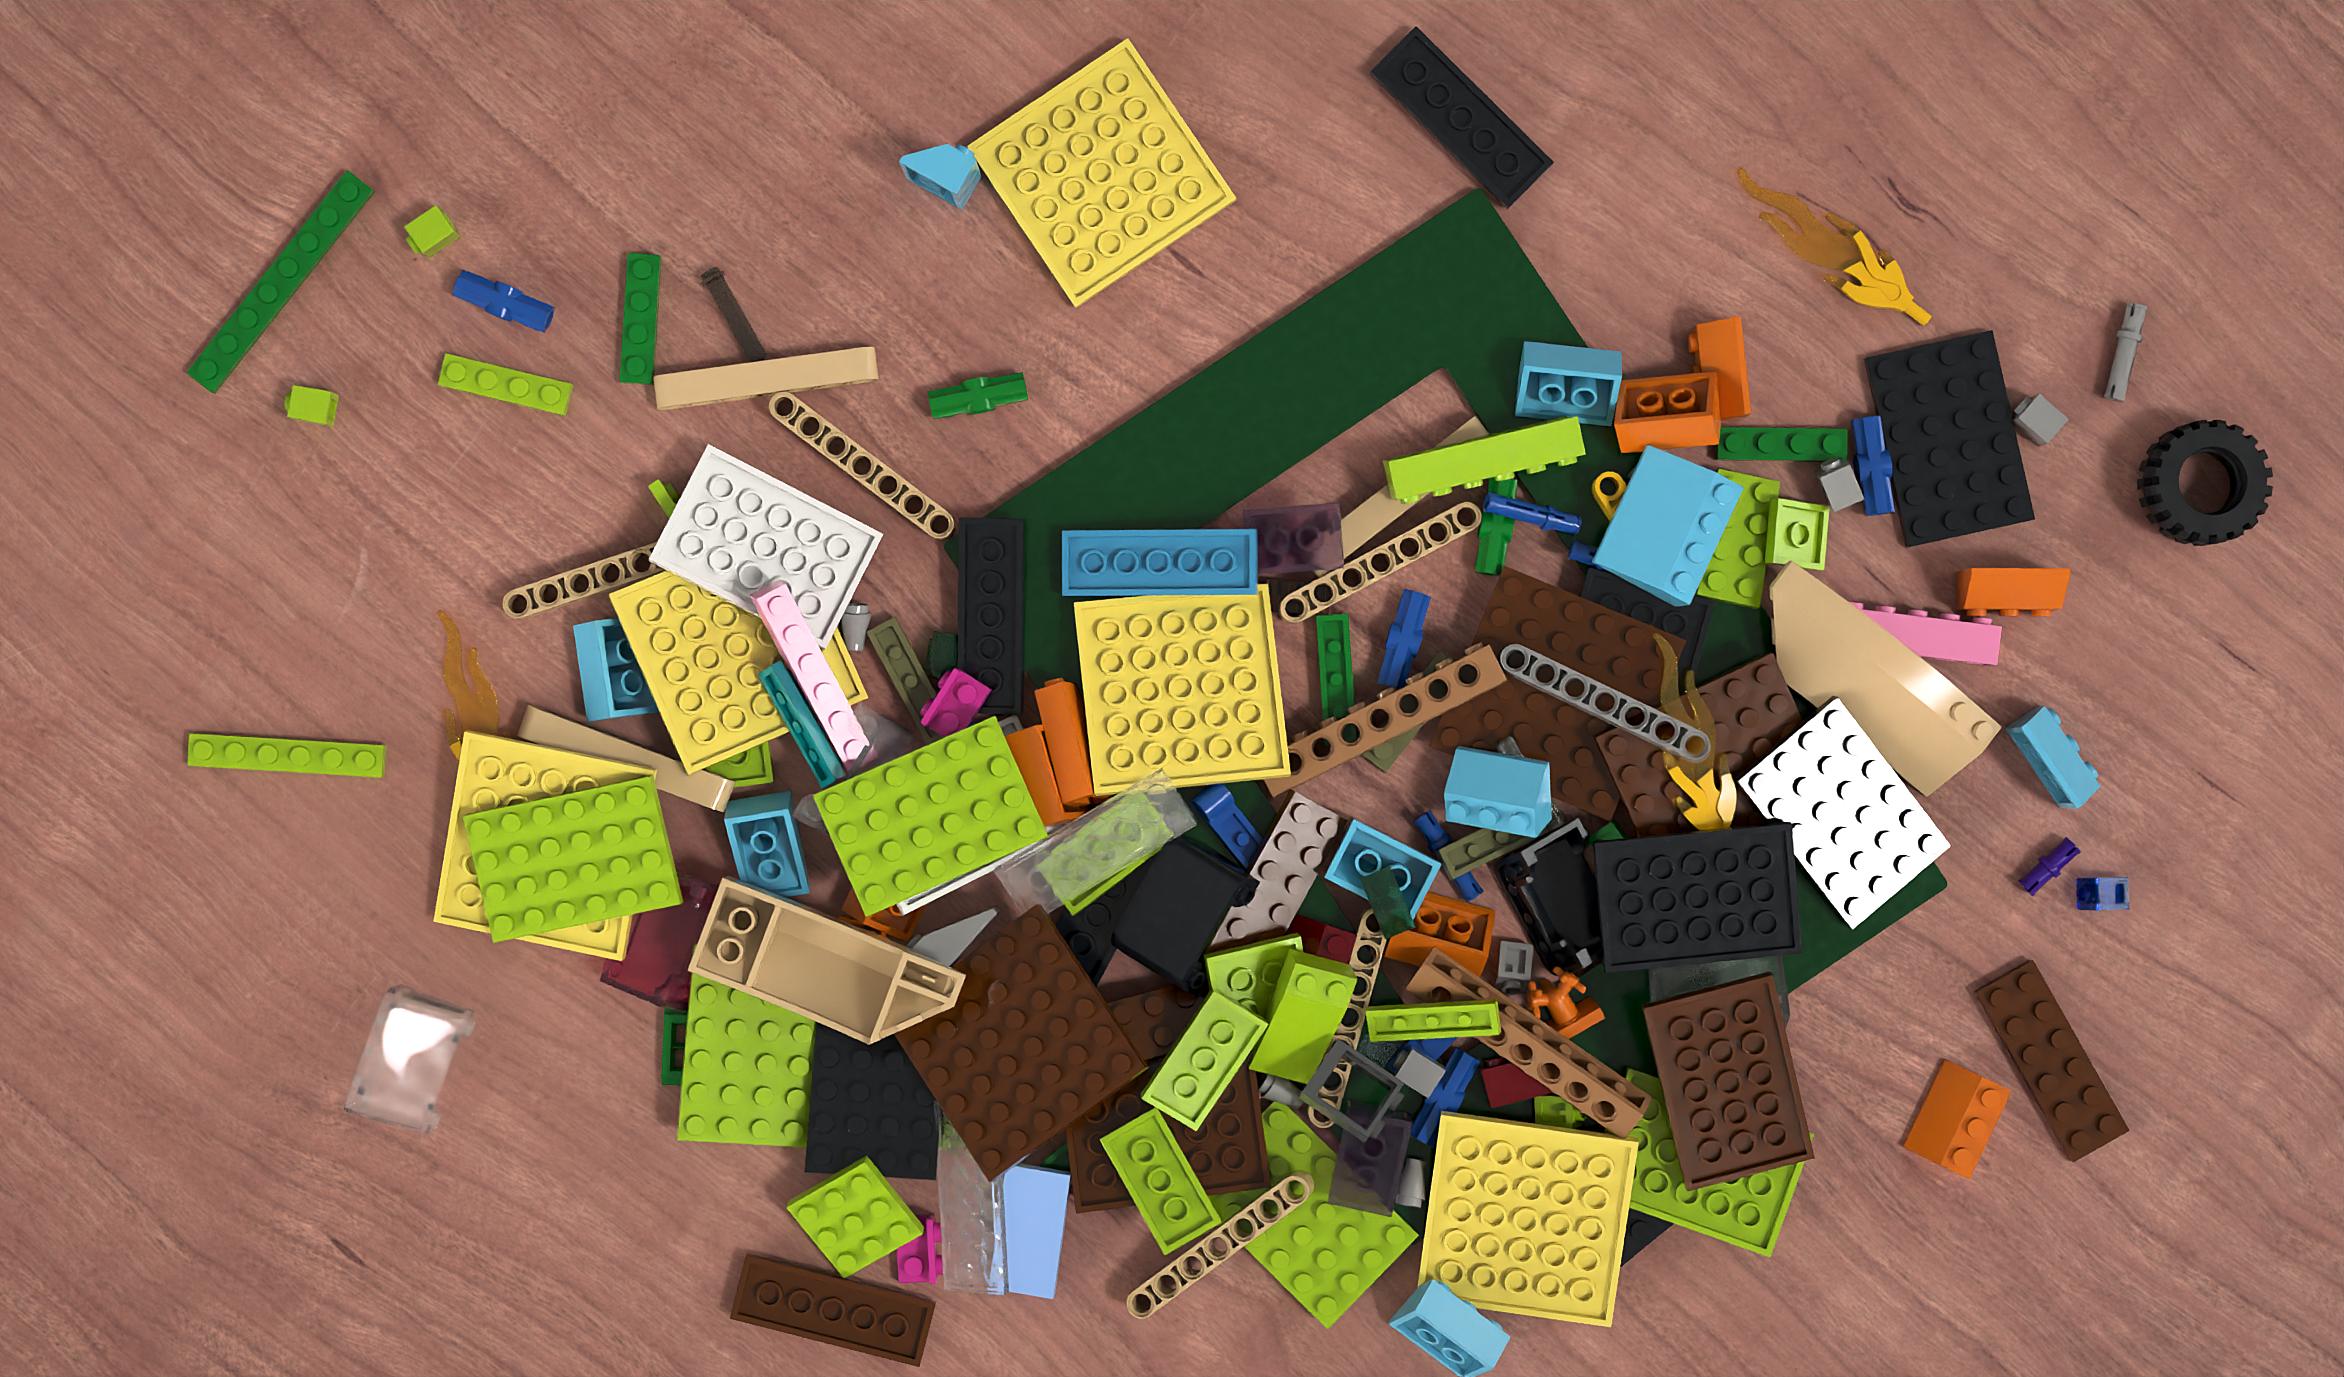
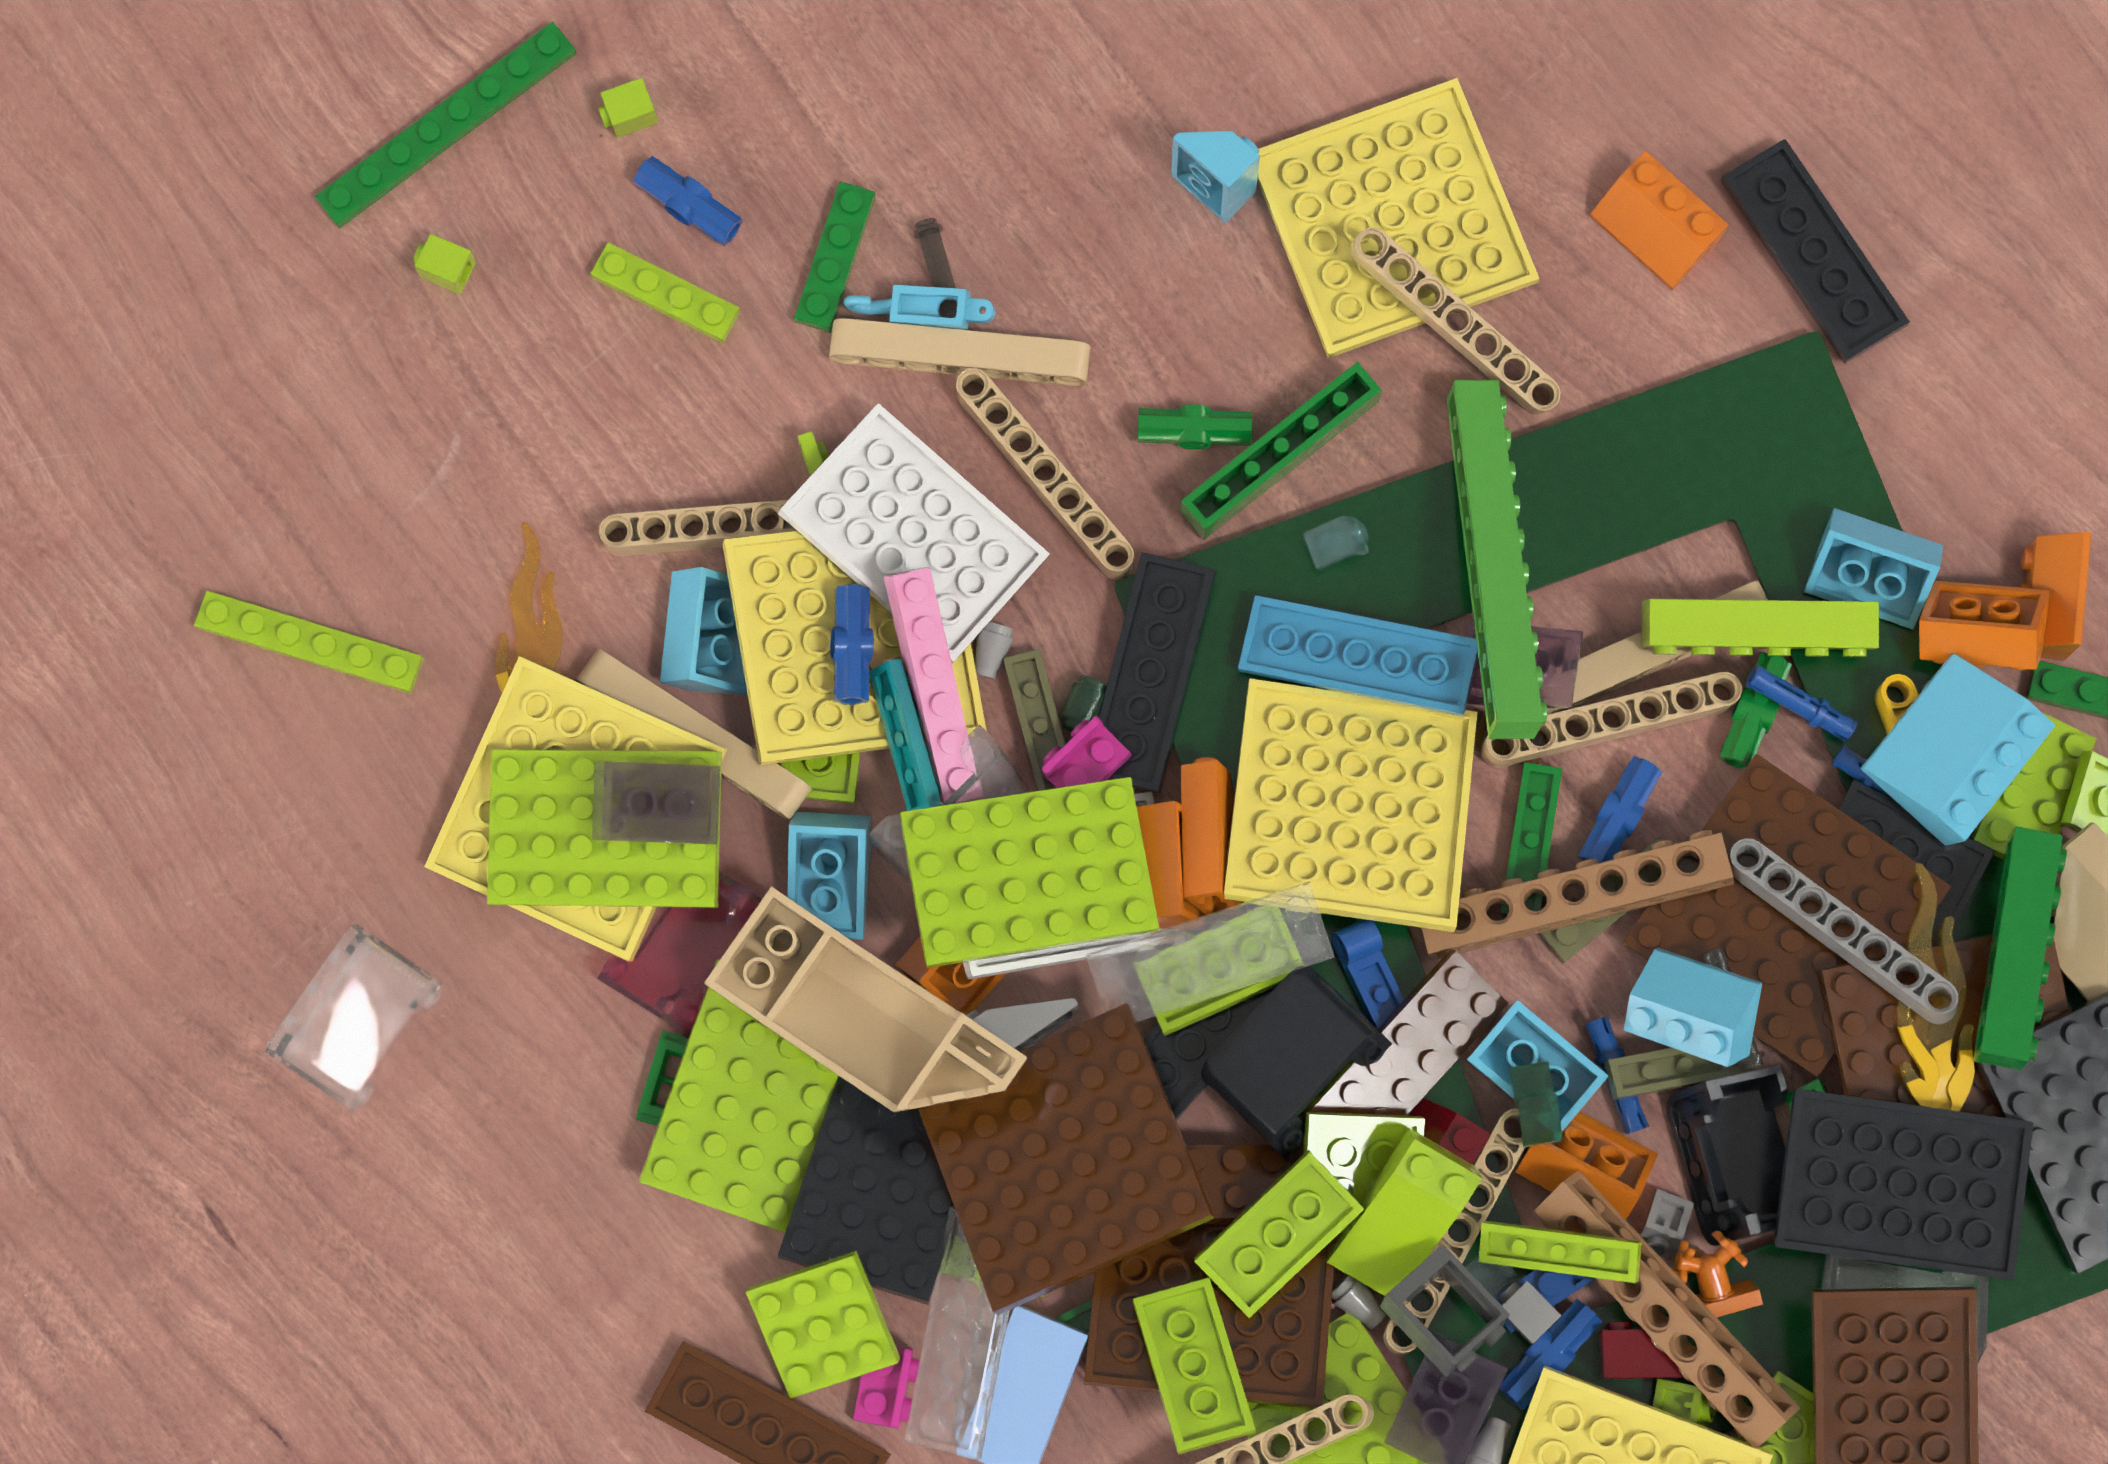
camera: 20 degrees right, 10 degrees down
(609, 834) = (656, 802): none -> slope
(724, 350) = (921, 306): none -> medium azure piece
(737, 656) = (851, 644): none -> blue piece
(1054, 400) = (1280, 450): none -> green brick
(1119, 467) = (1336, 541): none -> clear light blue bracket
(1190, 258) = (1474, 324): none -> tan beam
(1253, 457) = (1495, 560): none -> bright green brick
(1325, 123) = (1659, 220): none -> orange slope
(1751, 684) = (2019, 949): none -> green brick

